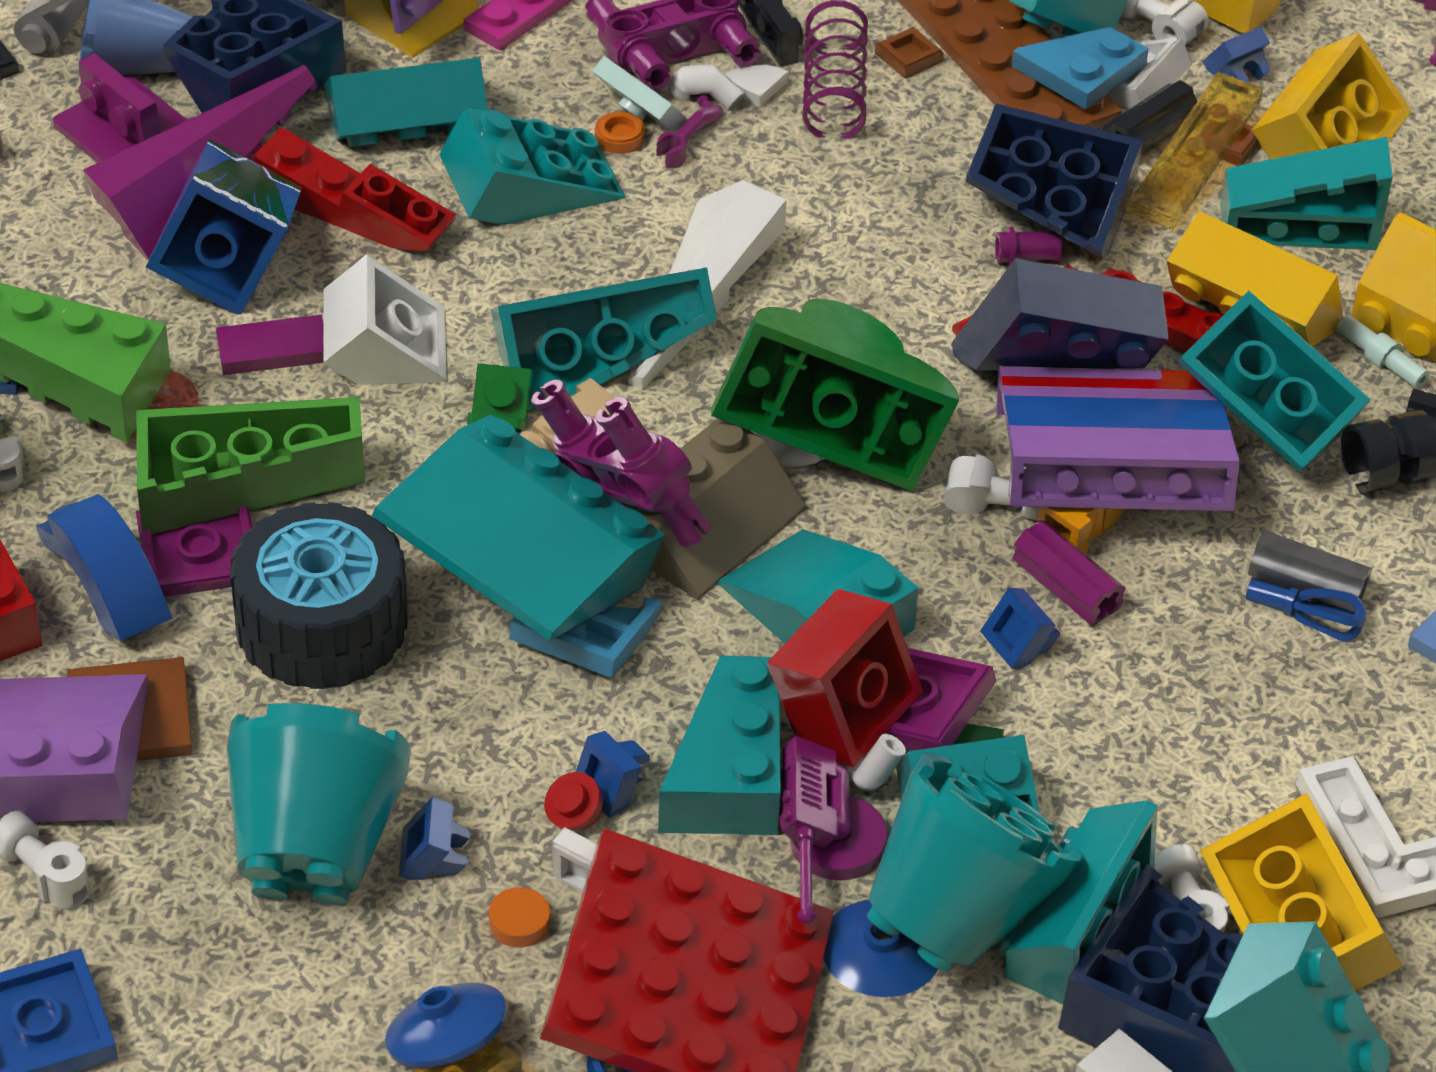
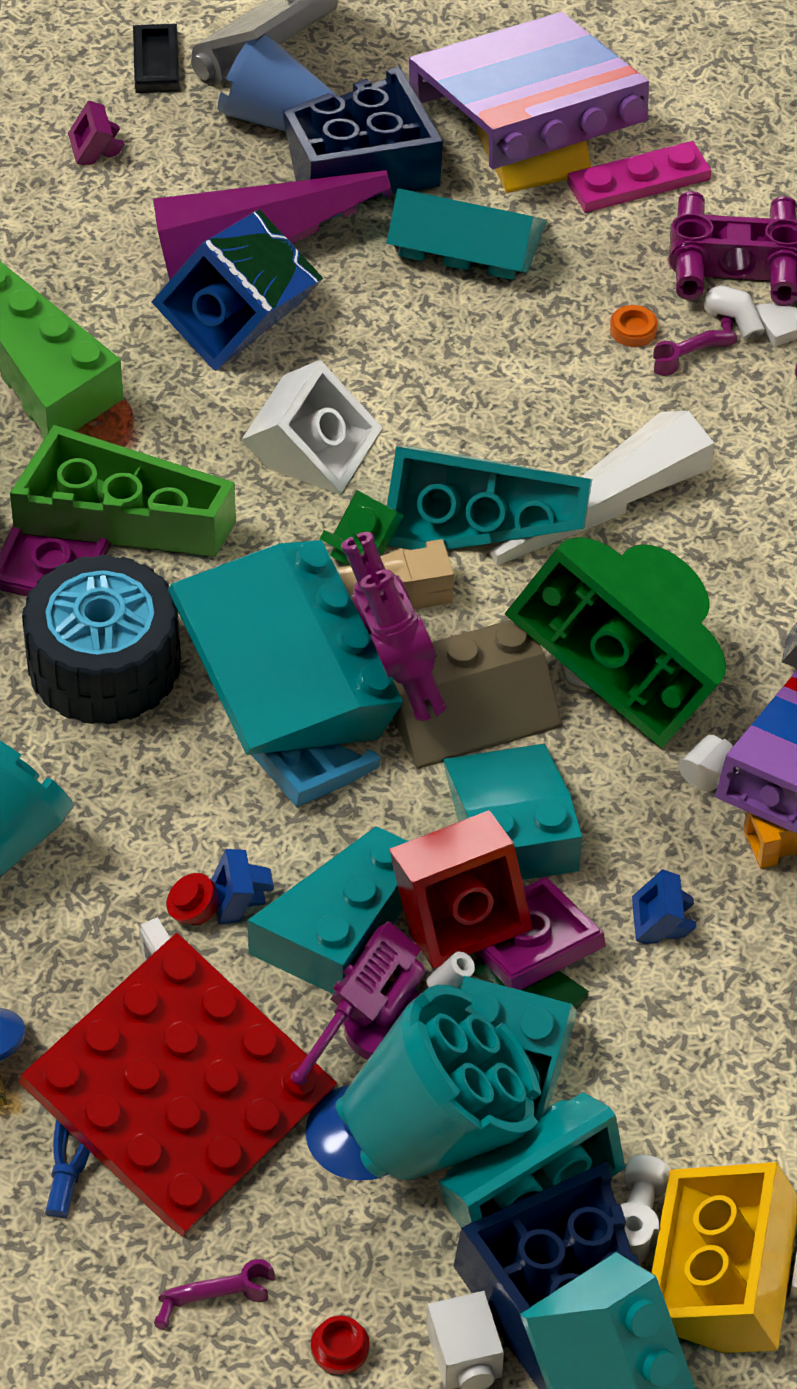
camera: 30 degrees right, 5 degrees up
(113, 112) = (224, 156): magenta bracket -> none
(271, 344) = (215, 405): magenta tile -> none
(362, 202) = (362, 301): red slope -> none
(428, 842) = (54, 885): blue tile -> none
(519, 917) = (89, 975): orange tile -> none
(524, 168) = (528, 329): teal slope -> none
(637, 97) = (663, 300): light aqua plate -> none
(1068, 572) = (740, 877): magenta axle -> none

